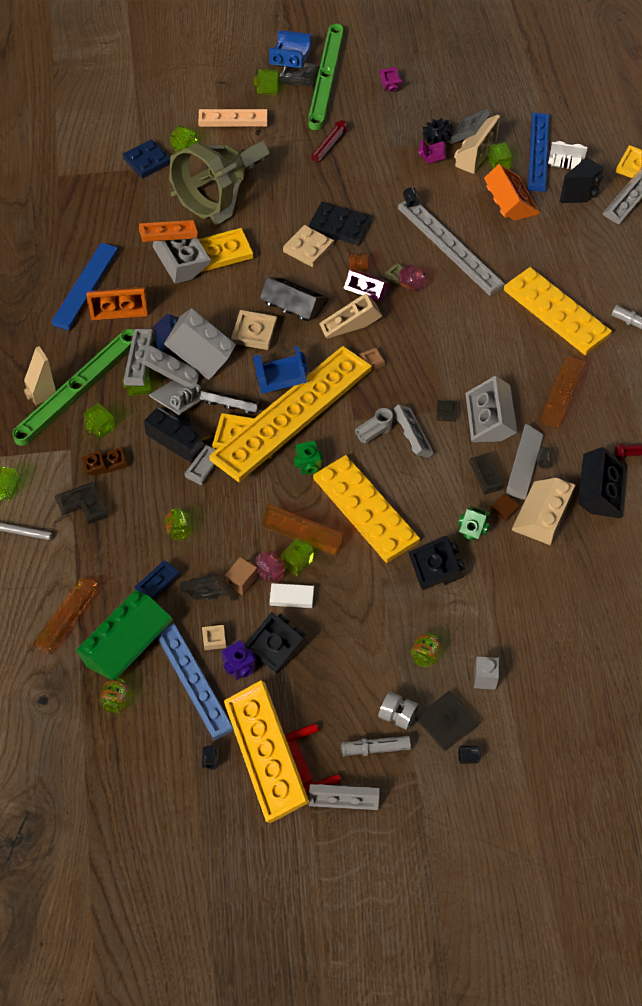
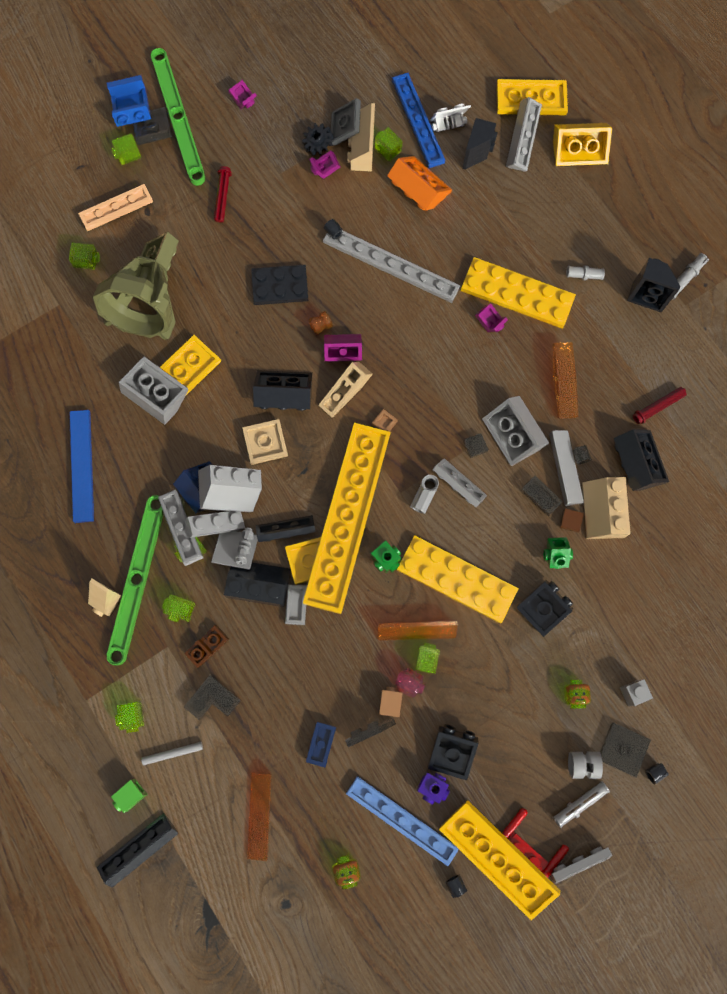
camera: 30 degrees left, 20 degrees up
(117, 303) = (124, 472): orange slope -> none
(123, 635) = (325, 817): green slope -> none
(146, 158) = (58, 292): dark blue plate -> none
(167, 230) = (133, 379): orange plate -> none
(178, 524) = (308, 678): clear neon green head -> none
(214, 637) = (398, 773): tan plate -> none
(282, 372) = (316, 479): blue panel -> none
(291, 595) = (440, 697): white tile -> none
(308, 246) = (264, 323): tan plate -> none
(393, 274) = (361, 318): olive tile -> none
(412, 277) = (379, 319): clear pink head -> none
(518, 317) = (491, 319): none -> magenta bracket

